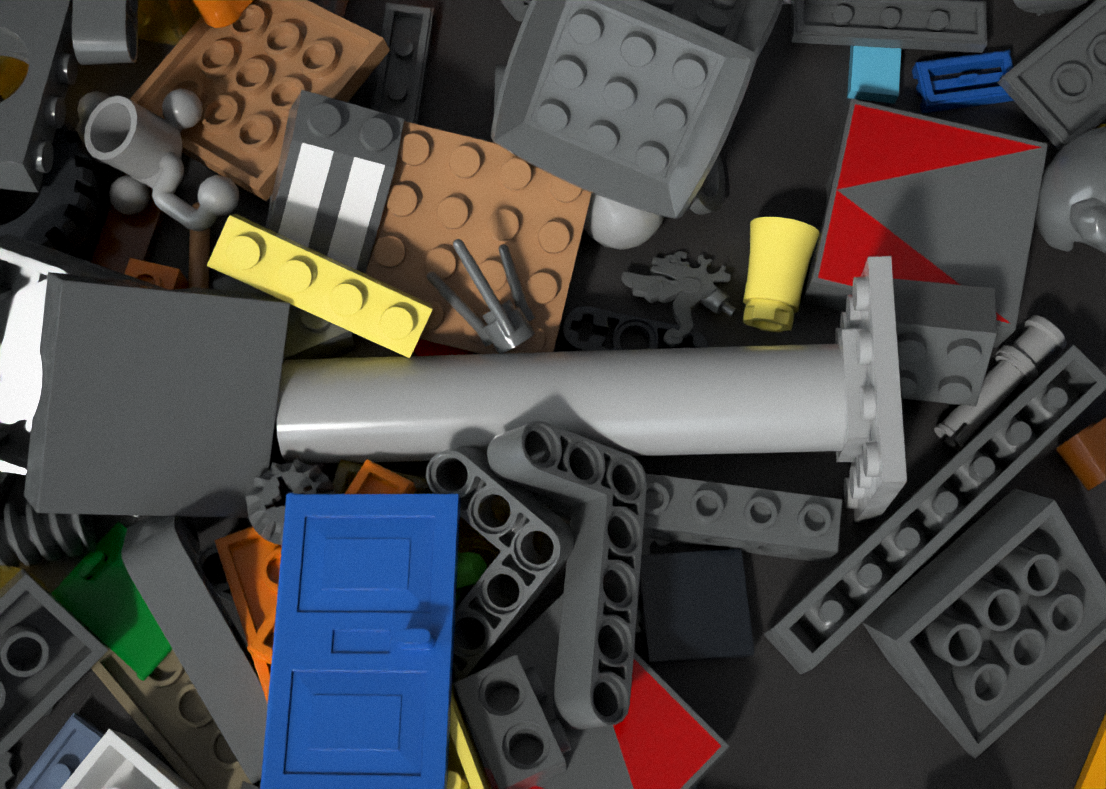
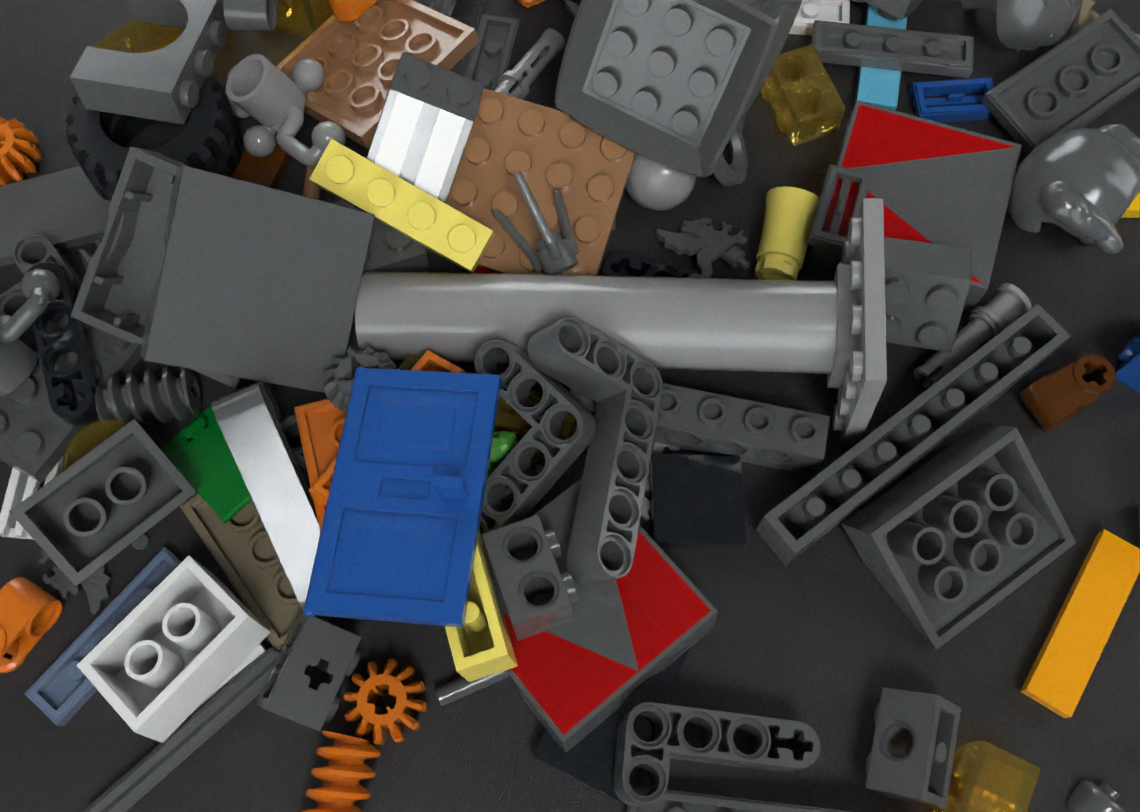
camera: 10 degrees right, 5 degrees down
(437, 96) = (546, 49): none -> light grey pin
(795, 86) = (801, 86): none -> clear yellow brick
(831, 282) = (832, 239): none -> dark grey tile

